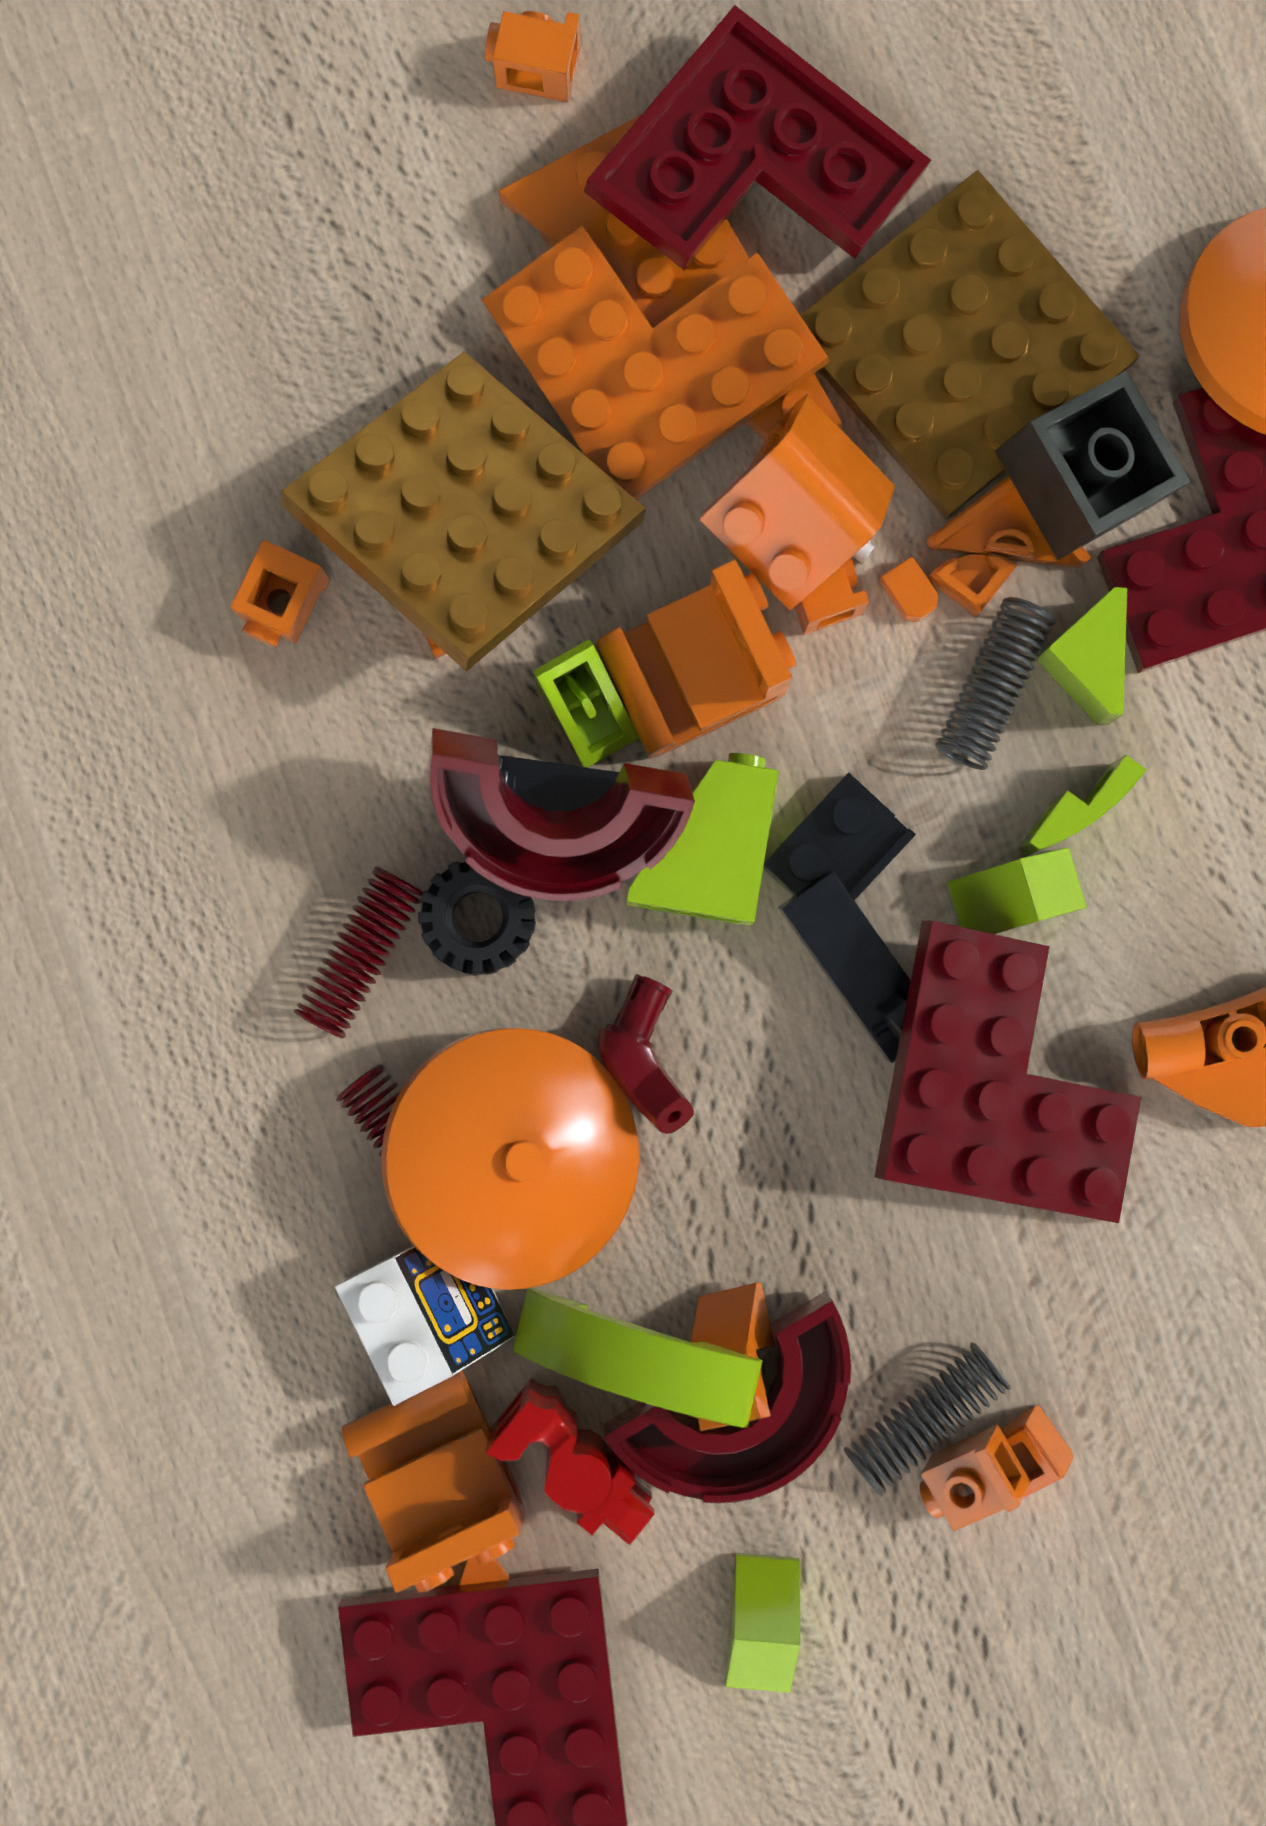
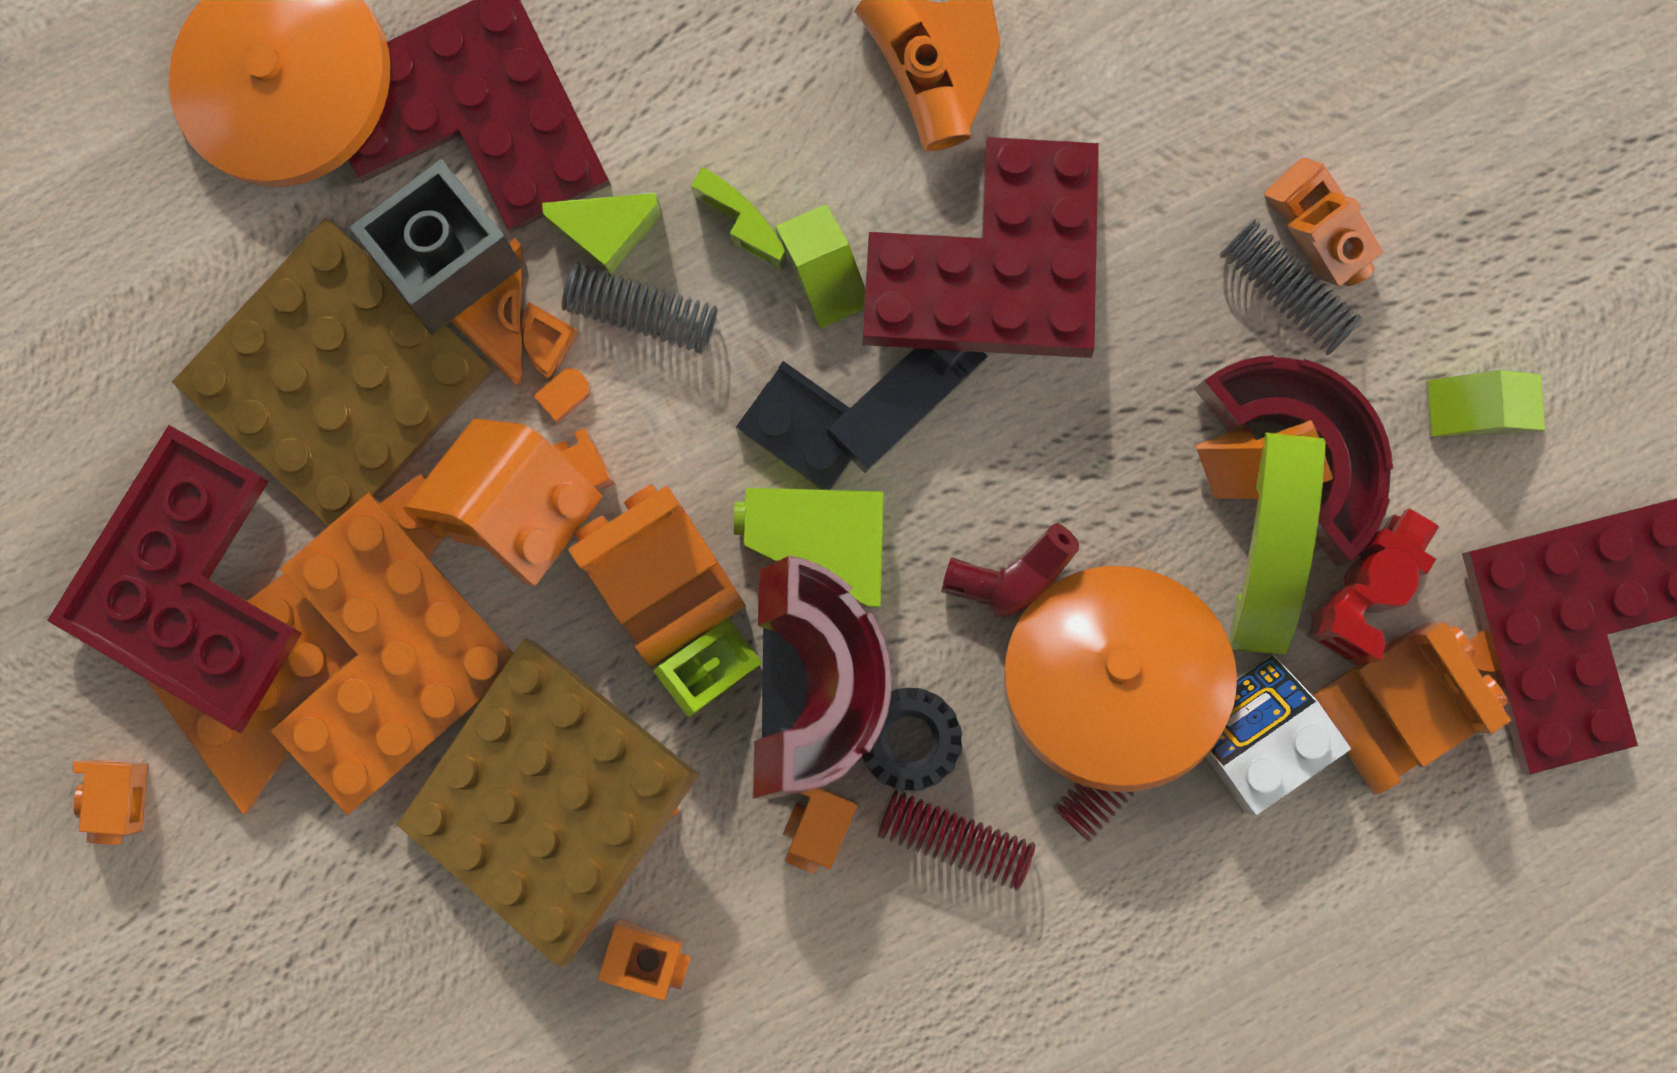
camera: 95 degrees left, 0 degrees up
(392, 802) = (818, 829): none -> orange brick

